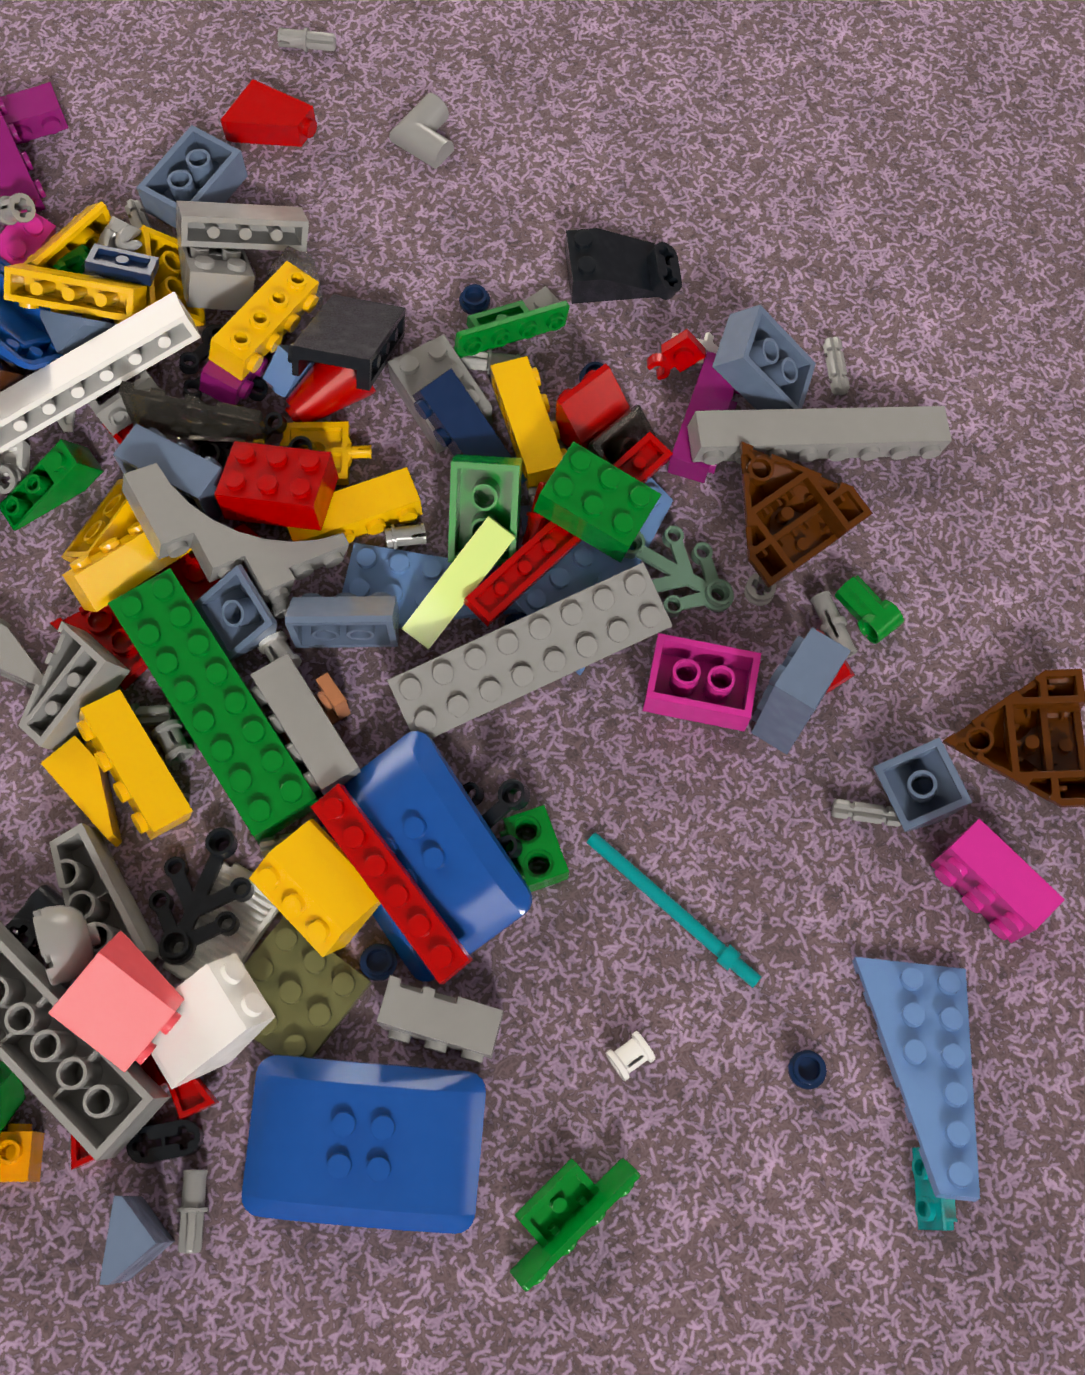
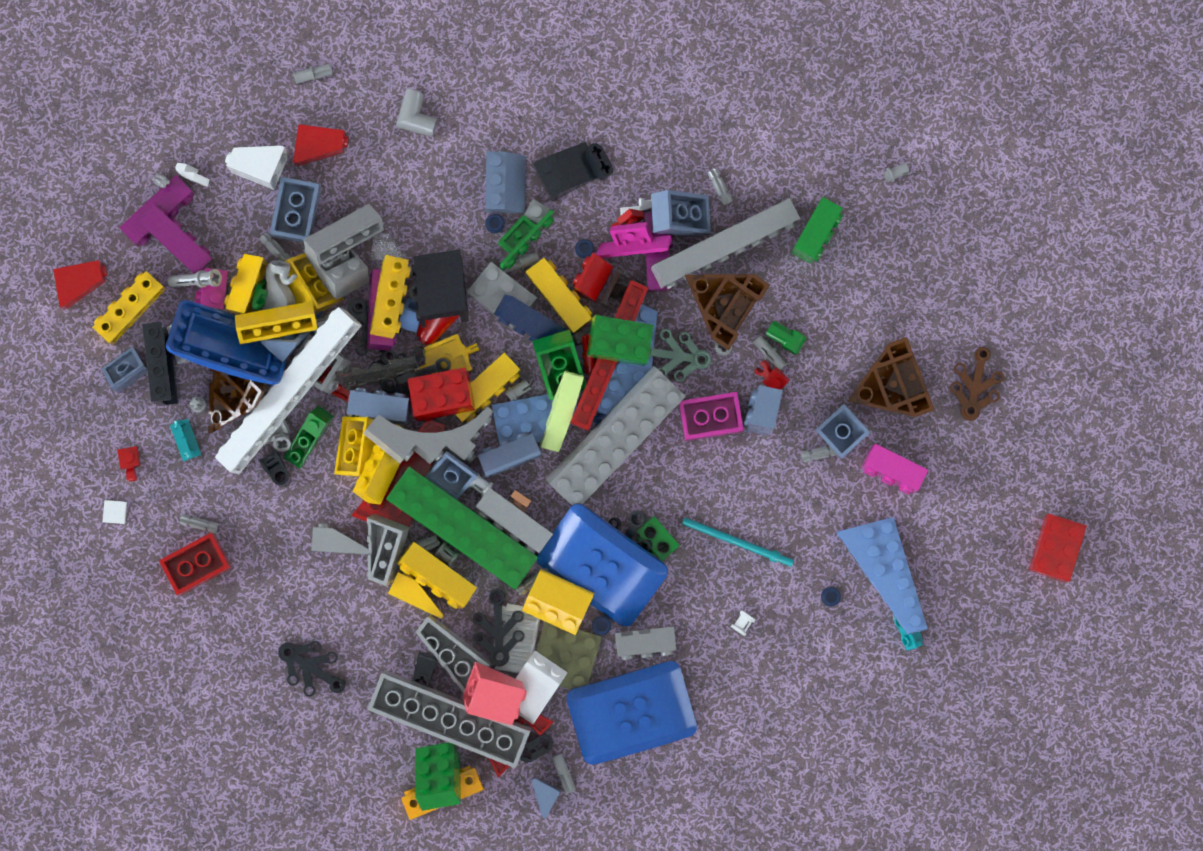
camera: 20 degrees left, 15 degrees up
(24, 77) = (160, 180): none -> light grey axle
(65, 941) = (452, 677): light grey cylinder -> none
(77, 98) = (191, 173): none -> white slope
(121, 264) = (293, 294): dark blue plate -> none
(170, 101) = (258, 164): none -> white slope
(391, 884) = (594, 587): red plate -> none
(512, 250) = (505, 182): none -> sand blue slope
(564, 1213) = (738, 707): green bracket -> none
(679, 374) = (633, 239): none -> dark pink bracket
(974, 466) = (818, 231): none -> green brick

